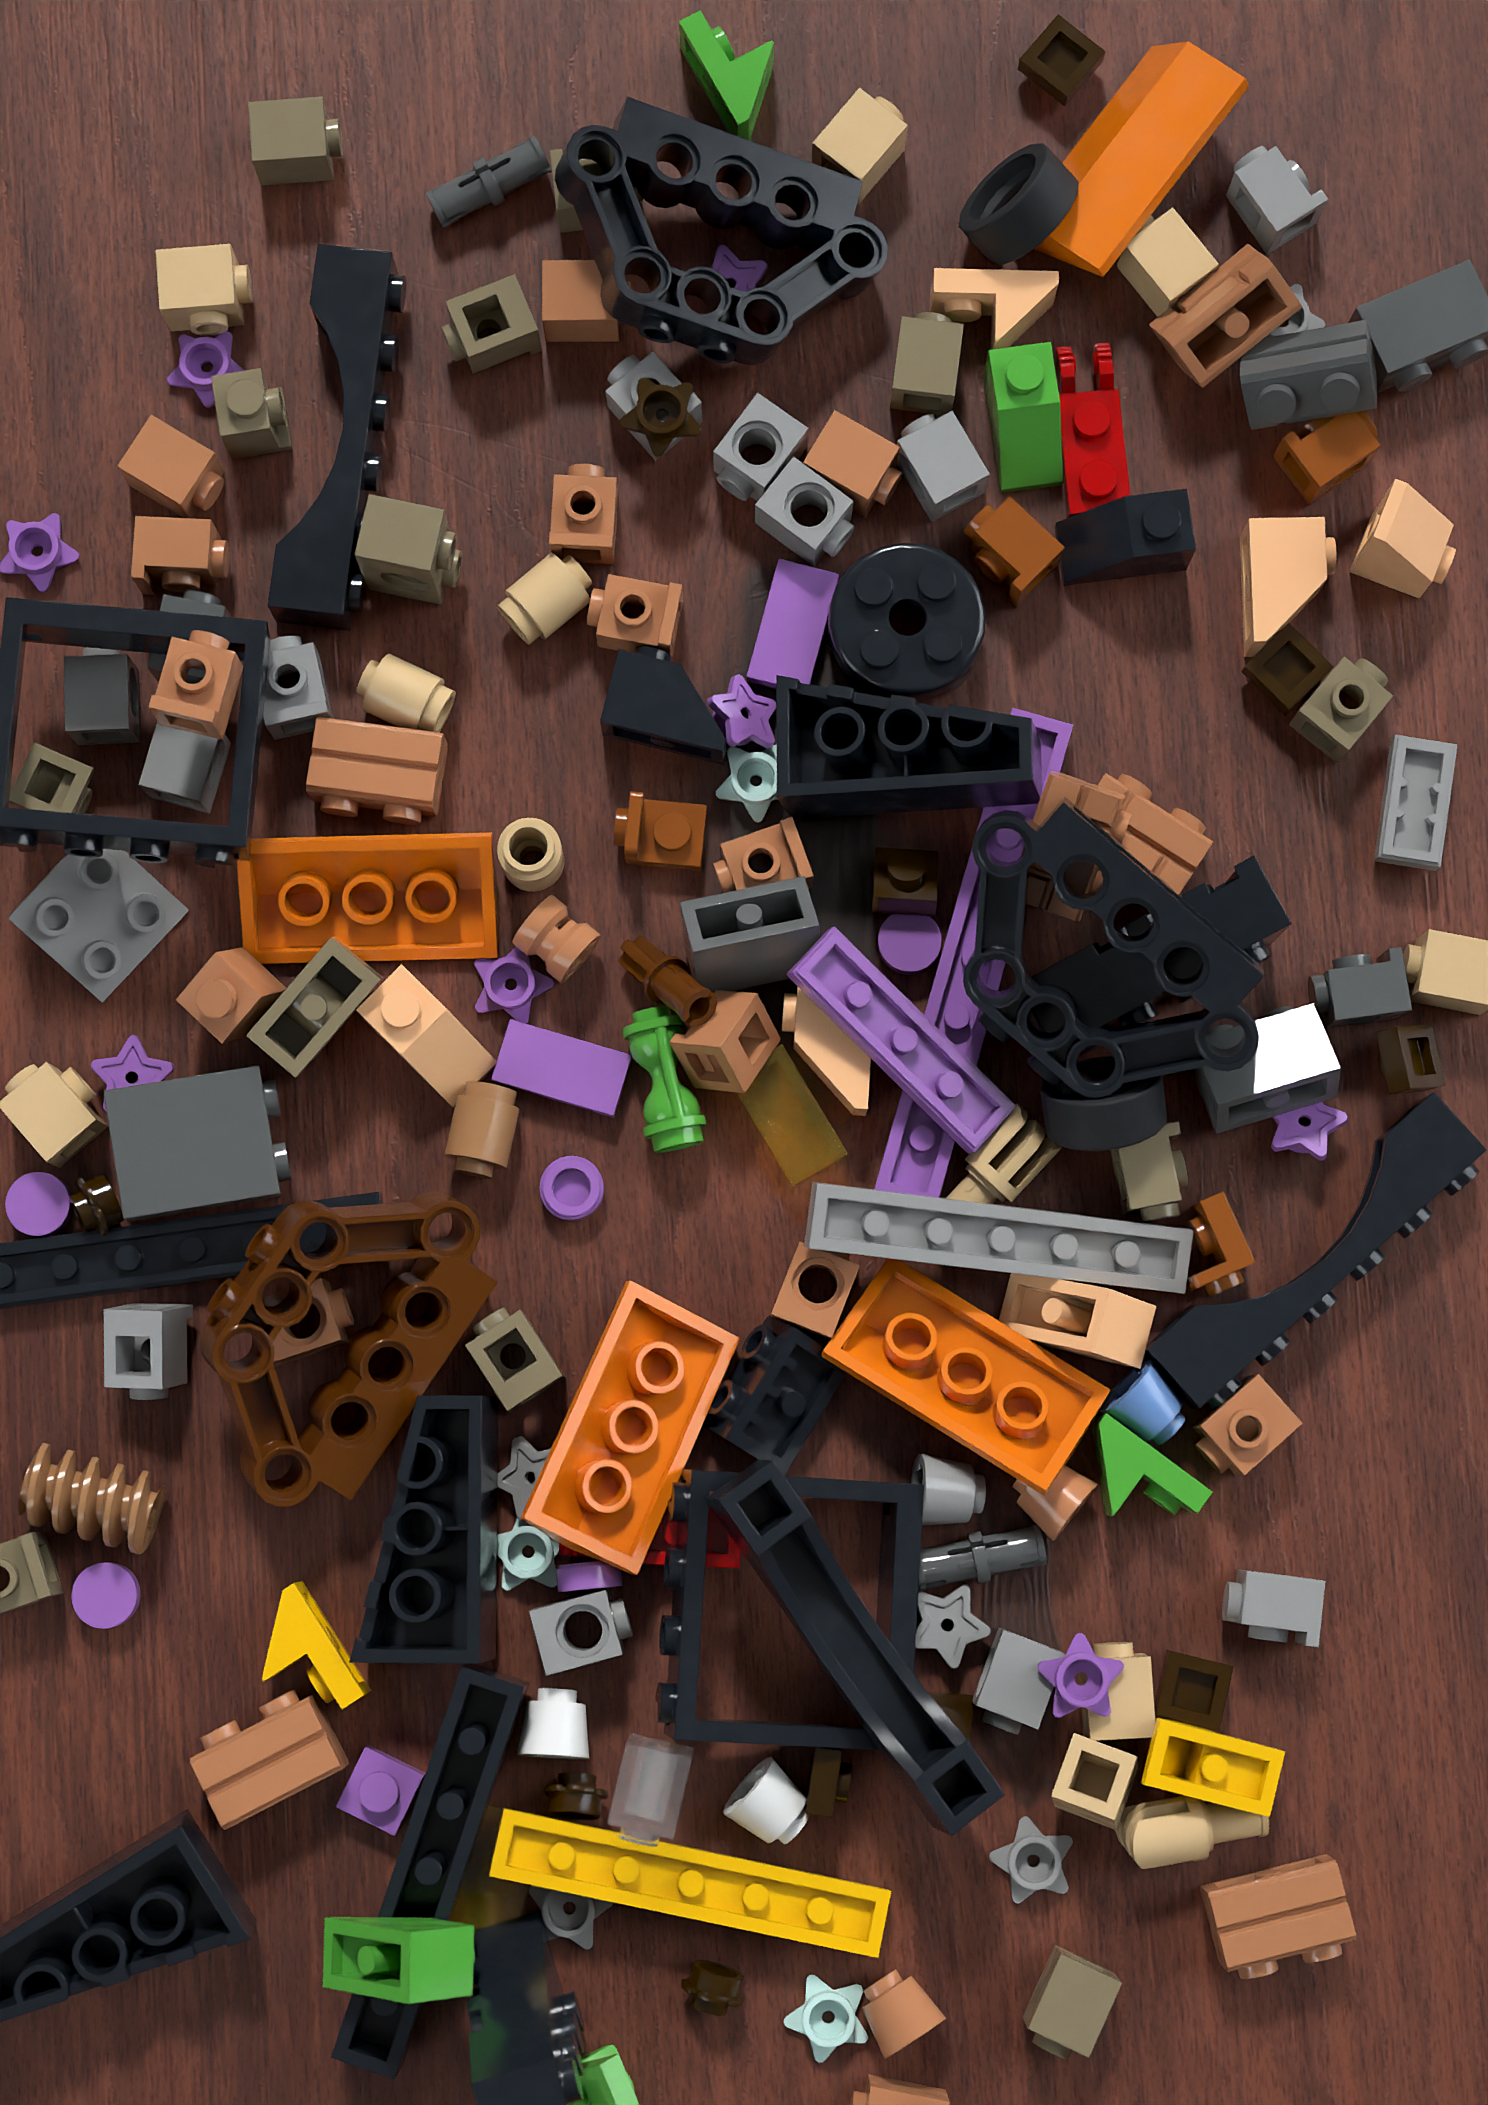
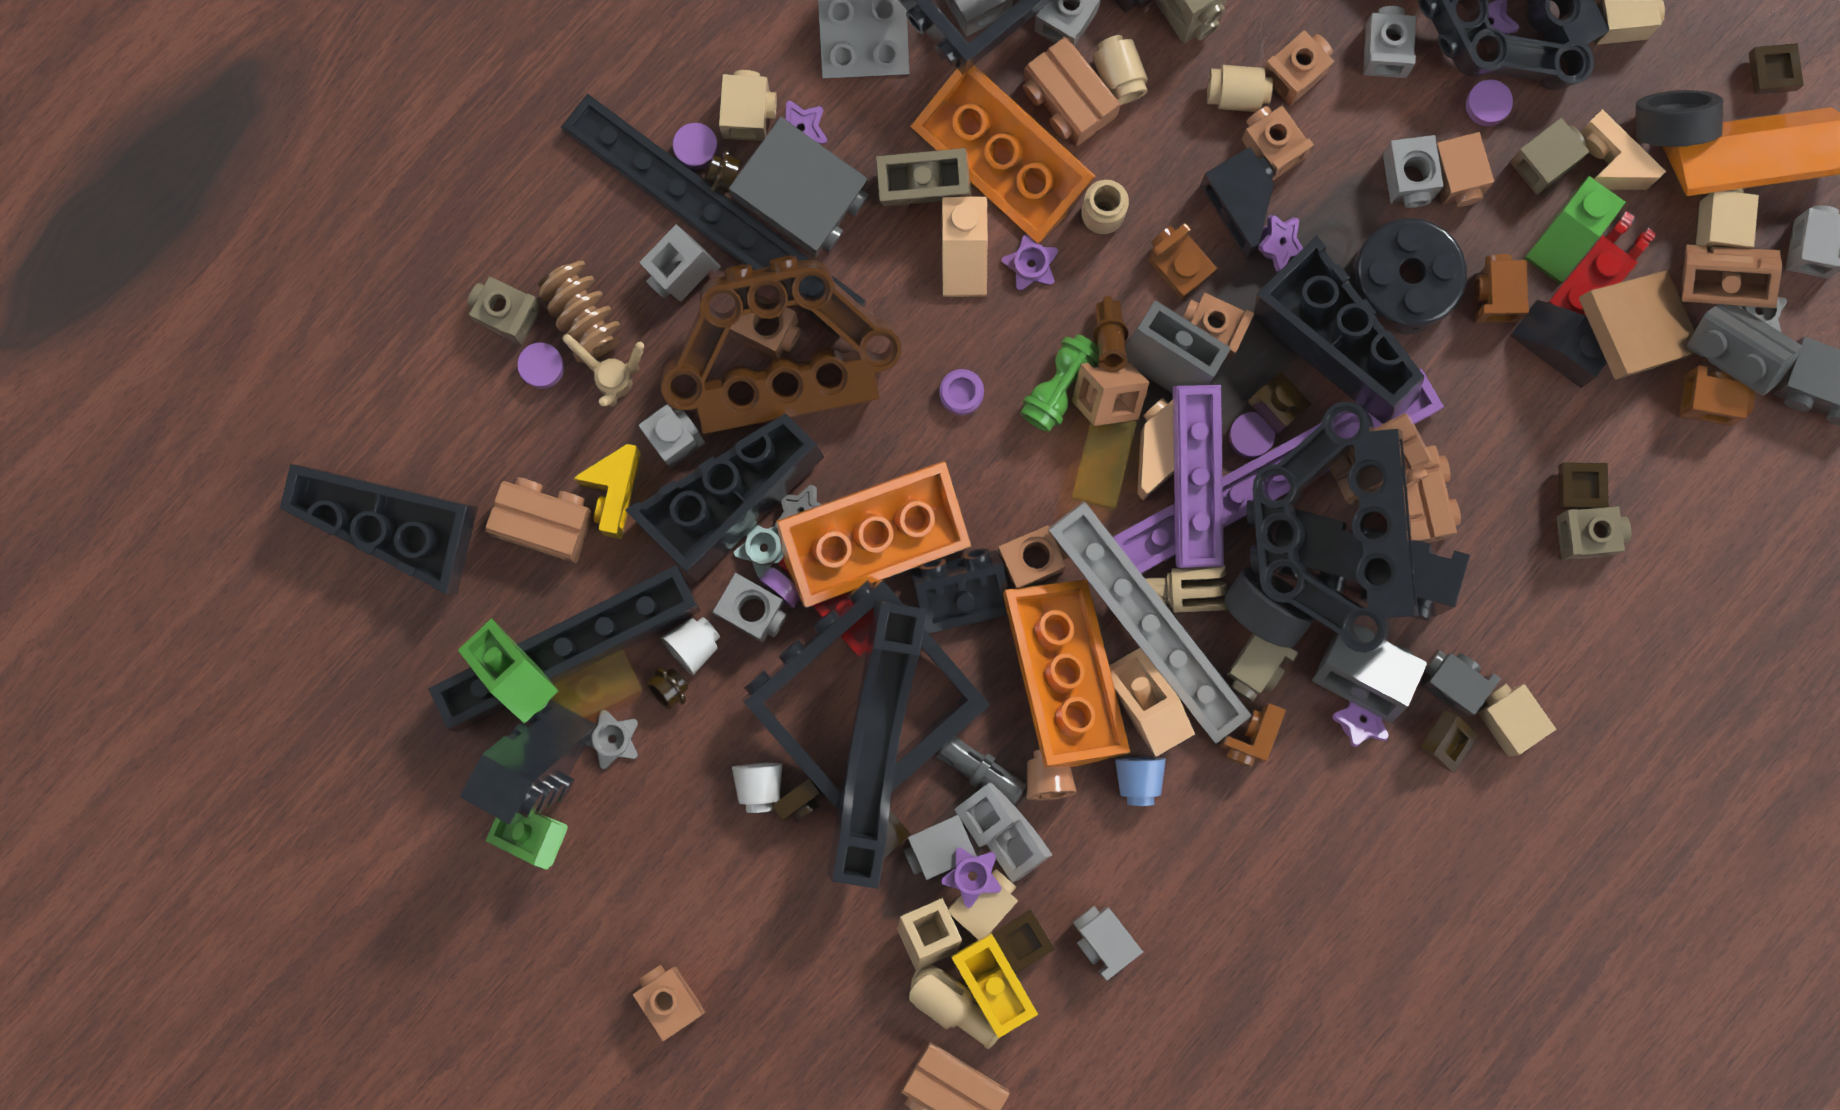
camera: 45 degrees right, 0 degrees up
(191, 1533) = (611, 375): none -> tan plant
(230, 994) = (888, 130): nougat brick -> none
(318, 1532) = (672, 435): none -> light grey brick
(381, 1790) = (577, 589): medium lavender plate -> none
(482, 1129) = (946, 319): medium nougat brick -> none
(516, 1385) = (850, 426): dark tan brick -> none
(556, 939) = (1076, 261): nougat wheel -> none
(562, 1068) = (1015, 328): medium lavender tile -> none
(649, 1789) = (707, 716): clear brick -> none
(657, 398) = (1392, 39): dark brown plate -> none
(690, 1883) = (682, 783): yellow plate -> none
(713, 1987) = (643, 846): dark brown plate -> none
(738, 785) = (1242, 276): light aqua plate -> none
(763, 425) = (1432, 103): light grey brick -> none
(792, 624) = (1350, 220): medium lavender tile -> none
(811, 368) = (1489, 103): none -> medium lavender tile
(823, 2035) = (673, 926): light aqua plate -> none
(899, 2012) = (720, 949): nougat hat -> none
(941, 464) = (1507, 213): light grey brick -> none
(949, 1490) = (999, 721): light grey hat -> none
(965, 1629) = (945, 782): light grey plate -> none
(1046, 1874) = (860, 958): light grey plate -> none
(1064, 1595) = (1004, 830): none -> light grey slope
(1070, 2004) = (808, 1031): dark tan brick -> none
(1127, 1459) = (1106, 795): bright green slope -> none
(1184, 452) = (1639, 323): none -> medium nougat tile
(1245, 1427) = (1179, 838): nougat brick -> none
(1281, 573) = (1629, 435): light nougat slope -> none
(1405, 543) = (1709, 480): light nougat slope -> none
(1408, 1168) = (1396, 794): black arch -> none
(1415, 802) = (1582, 617): light grey plate -> none

